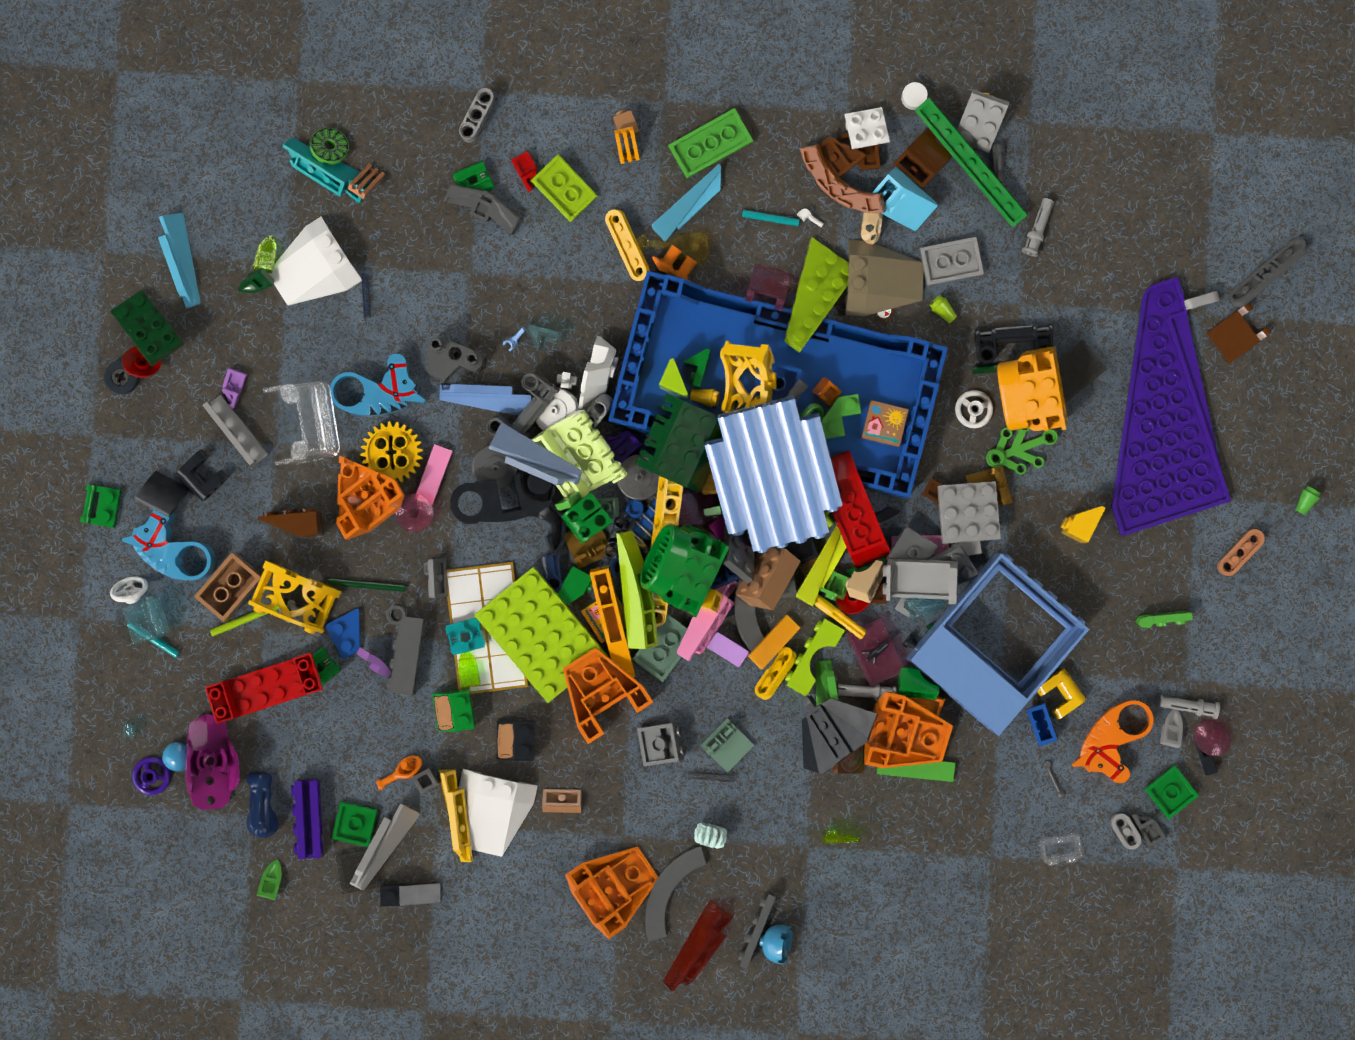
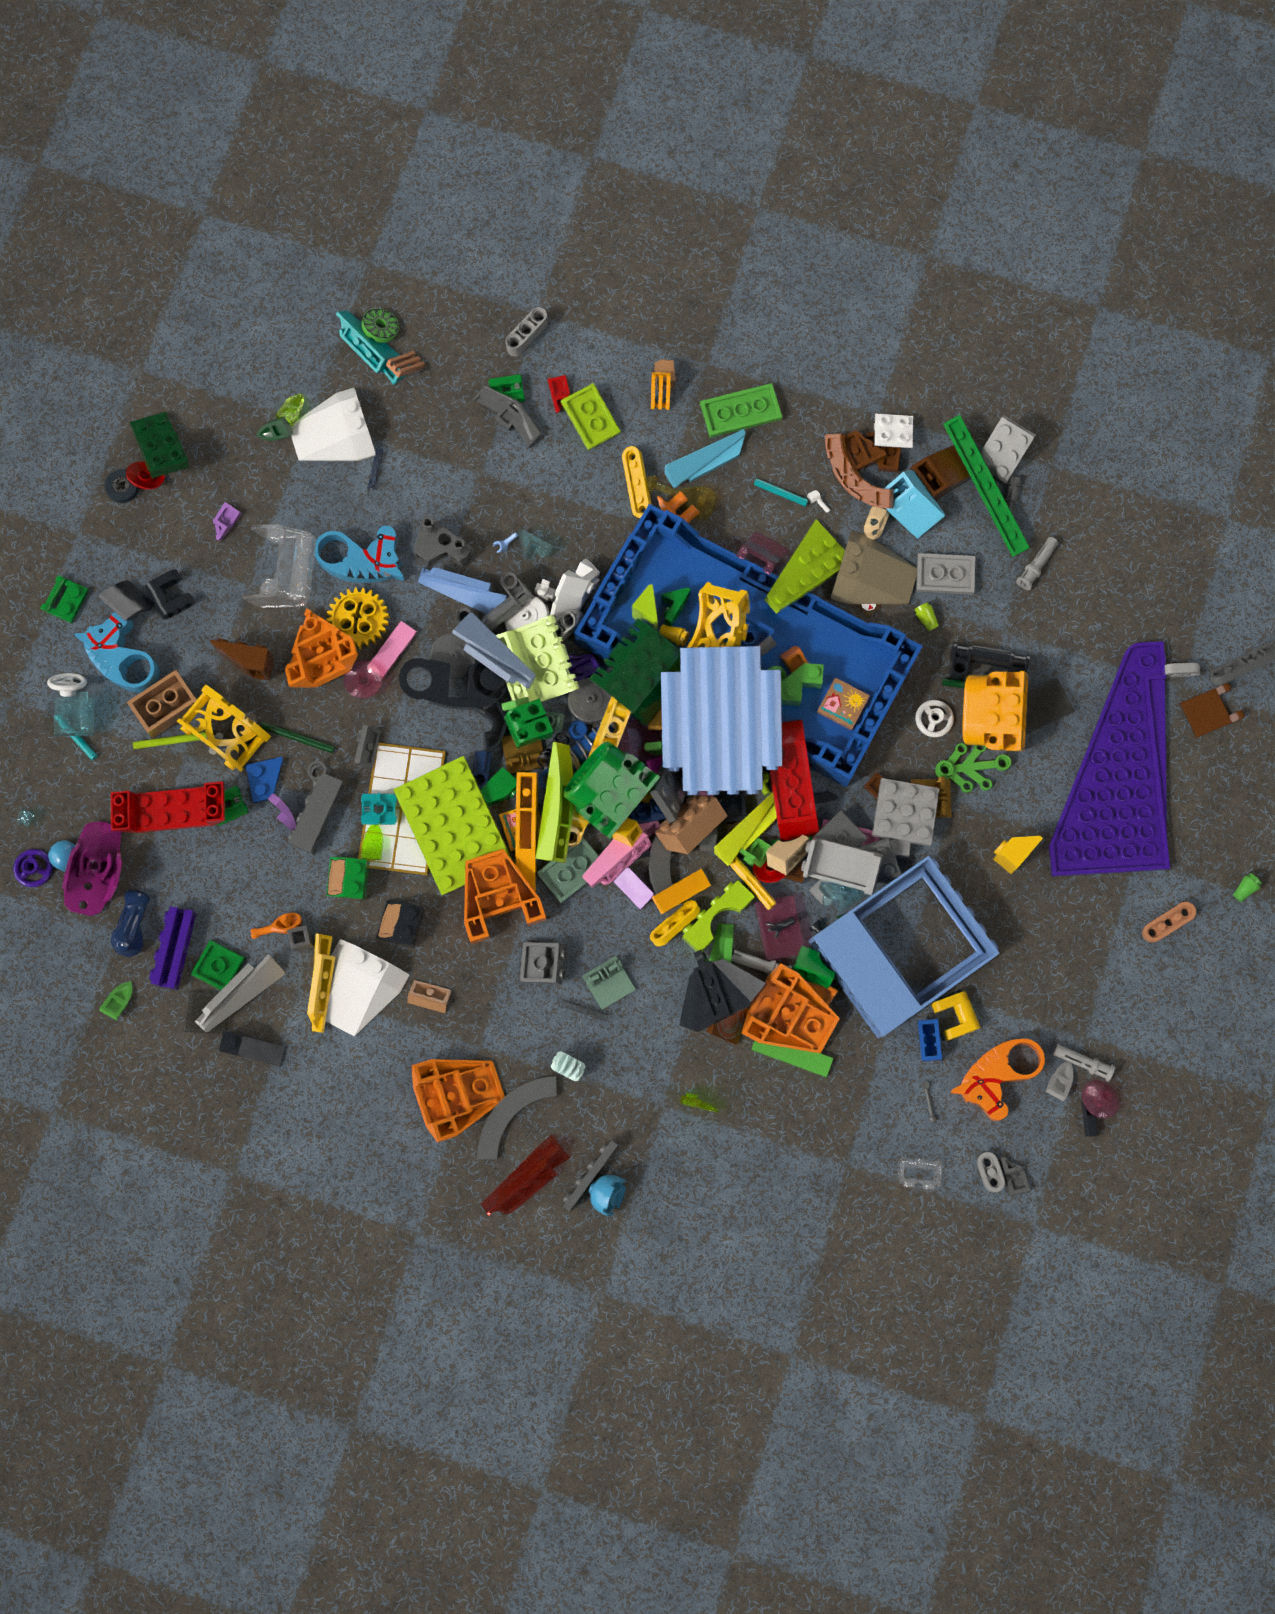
camera: 15 degrees right, 10 degrees down
(179, 258) = (209, 391): medium azure wedge -> none
(236, 430) = (215, 561): light grey fence -> none
(913, 95) = (944, 412): white piece -> none
(1162, 619) = (1076, 967): bright green hinge -> none
(1171, 792) = (1046, 1144): green plate -> none

